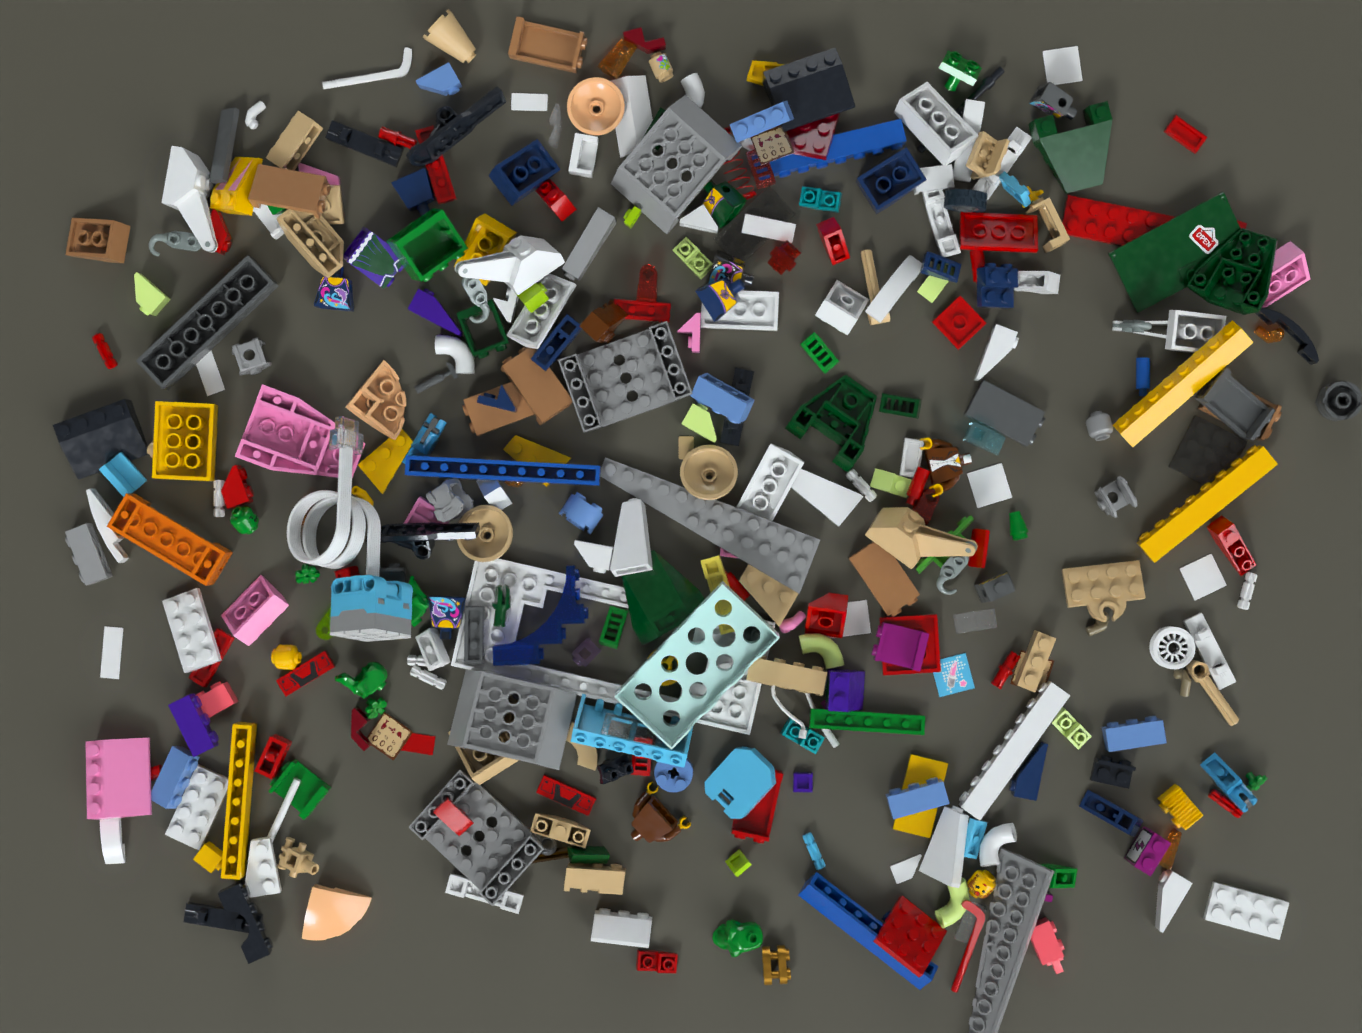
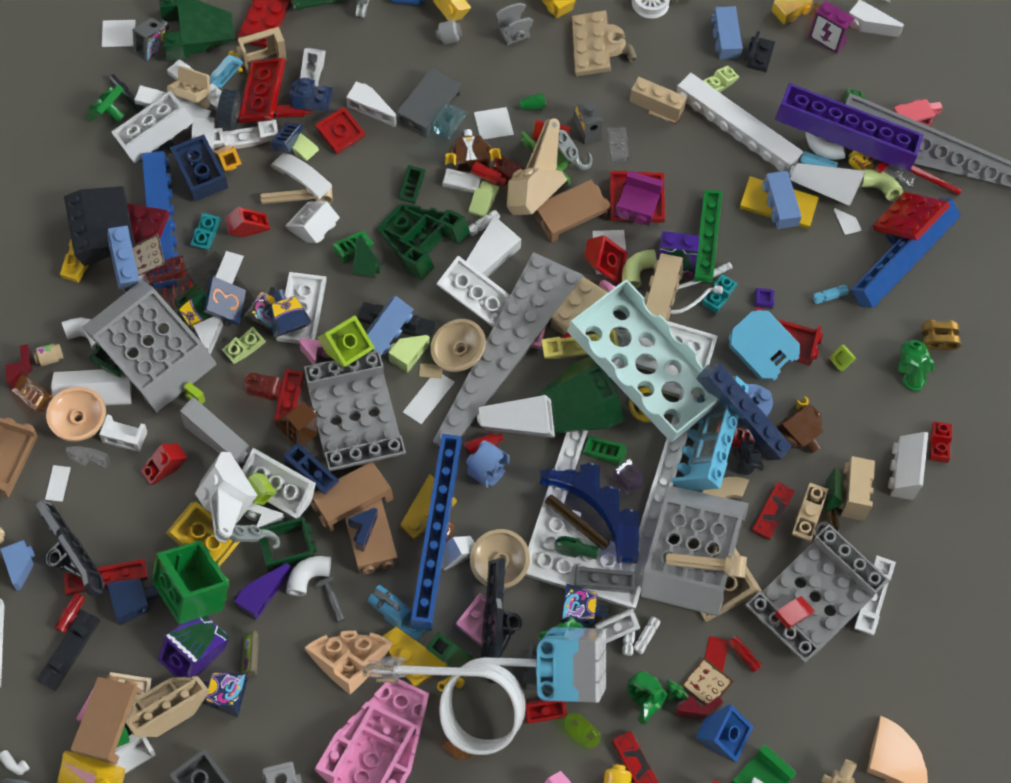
camera: 90 degrees left, 25 degrees down
(294, 142) = (51, 719): tan brick -> none
(306, 574) = (527, 750): green plant -> none
(338, 753) = (725, 732): none -> blue slope
(374, 310) = (250, 654): none -> slope
(391, 493) = (448, 651): none -> dark green slope
(418, 770) = (745, 654): none -> red axle
(449, 500) = (463, 589): light grey piece -> none
(481, 756) = (733, 565): none -> tan axle
(523, 172) = (130, 491): dark blue slope -> none
(529, 604) = (577, 522): none -> dark brown axle
(595, 555) = (532, 453): white slope -> none
(608, 506) = (472, 446): none -> red cylinder
(652, 762) = (723, 386): none -> dark blue arch
(655, 448) = (428, 398): none -> white sticker
(693, 360) = (346, 342): none -> lime slope
(731, 231) = (224, 300): none -> tile
(784, 257) = (257, 263): clear red brick -> none
(798, 368) = (365, 261): none -> dark green slope
(907, 208) = (227, 158): none -> light orange brick
(954, 675) = (670, 165): medium azure sticker -> none
(1005, 670) = (664, 124): red pin -> none
(1007, 869) = (849, 127): none -> dark purple brick
(1028, 777) = (759, 109): dark blue slope -> none
(1111, 813) = (797, 55): dark blue slope -> none

